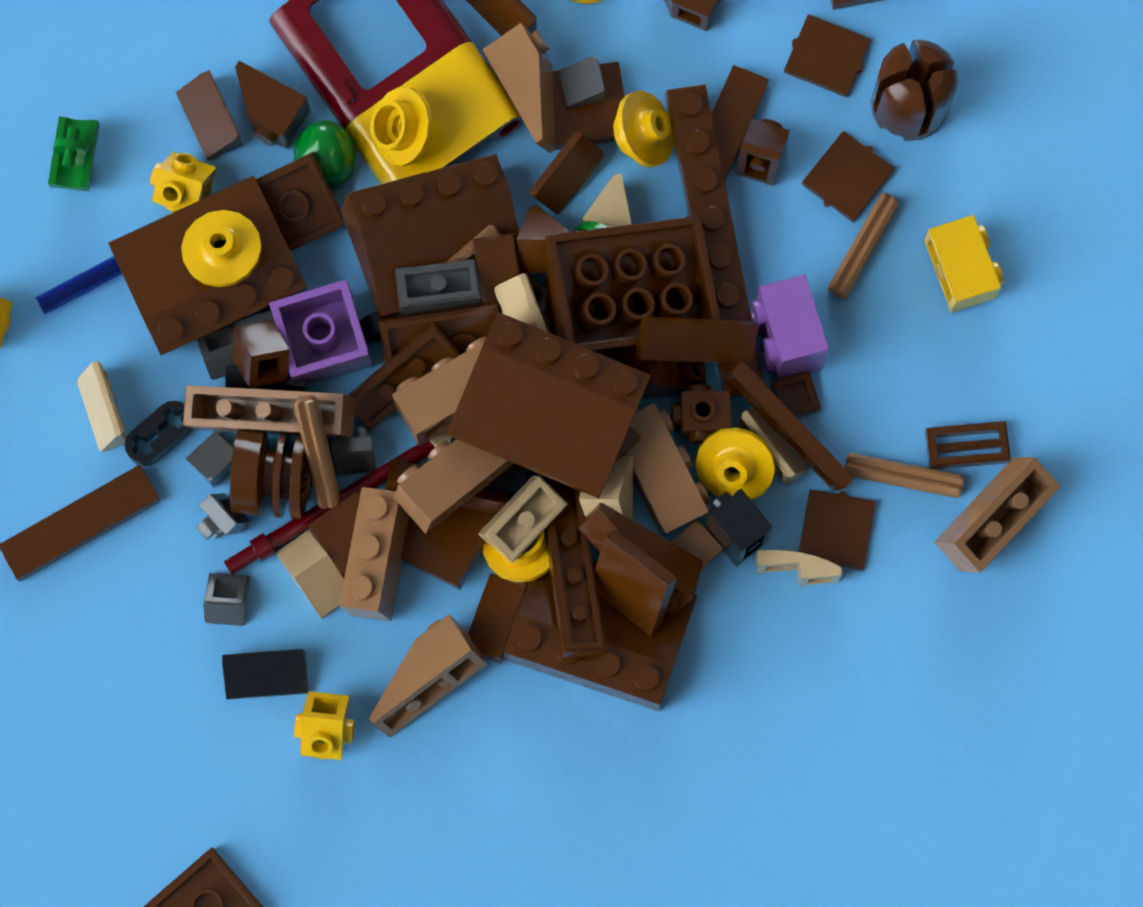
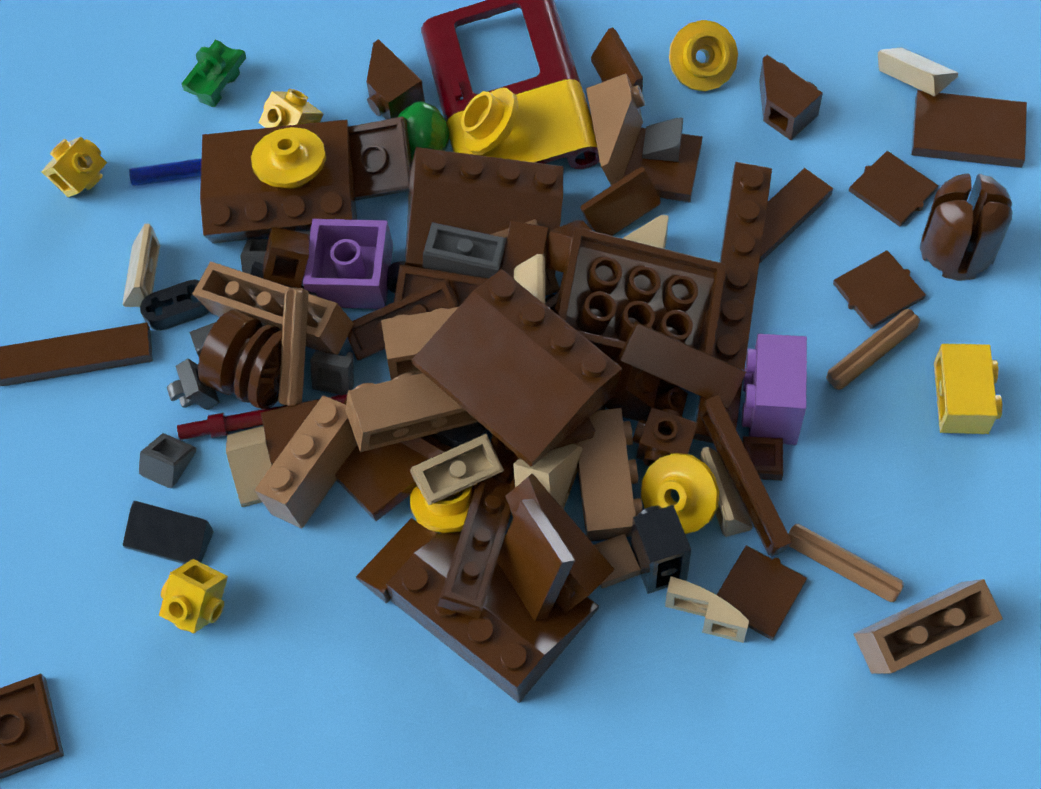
camera: 25 degrees right, 15 degrees down
(209, 116) = (339, 80): reddish brown slope -> none
(430, 671) = (309, 584): medium nougat slope -> none
(643, 129) = (702, 189): yellow piece -> none
(762, 151) = (804, 239): reddish brown slope -> none
(934, 449) = (916, 571): reddish brown tile -> none

